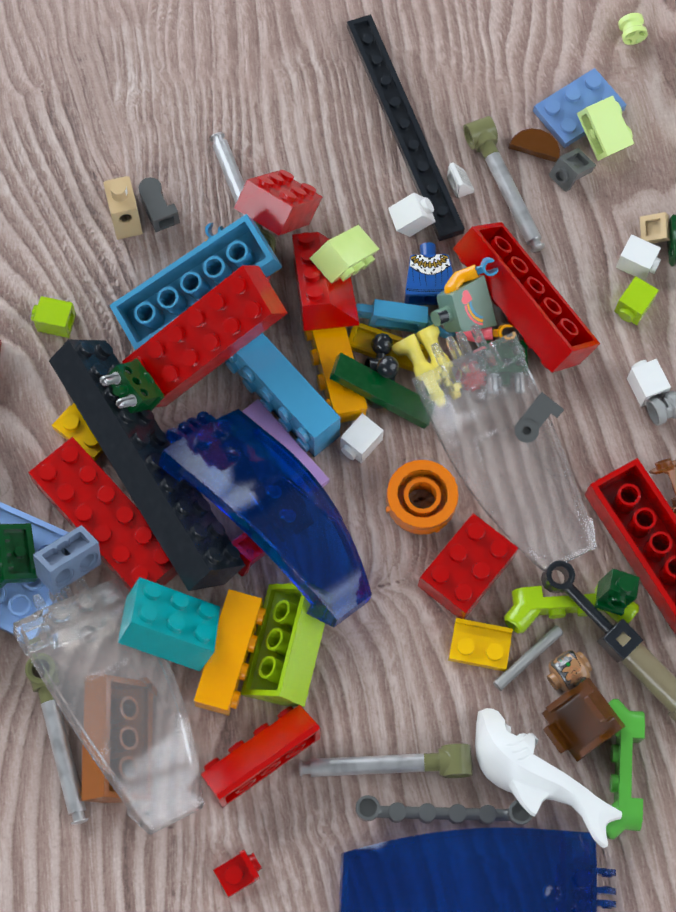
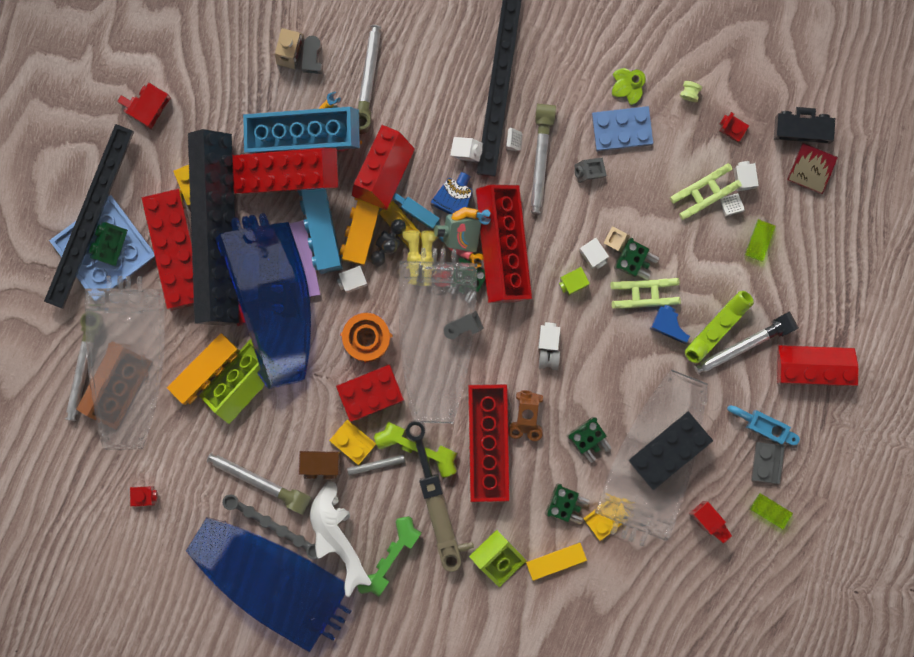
camera: 35 degrees right, 15 degrees up
(53, 316) = (209, 99): lime brick -> none
(67, 559) = (136, 265): sand blue brick -> none
(133, 386) = (227, 179): dark green piece -> none
(169, 624) = (174, 336): teal brick -> none
(260, 755) = (188, 438): red slope -> none
(278, 202) = (383, 100): red brick -> none
(345, 254) = (405, 158): yellowish green brick -> none
(379, 390) = (373, 251): dark green tile -> none
(458, 690) = (319, 463): none -> reddish brown brick
(536, 143) = (578, 139): reddish brown tile -> none
(555, 59) = (626, 86): none -> lime plate
(568, 670) = (393, 486): medium nougat head -> none
(581, 720) = (381, 519): reddish brown panel -> none
(605, 127) = (626, 155): yellowish green brick -> none
(616, 591) = (442, 458): dark green brick -> none

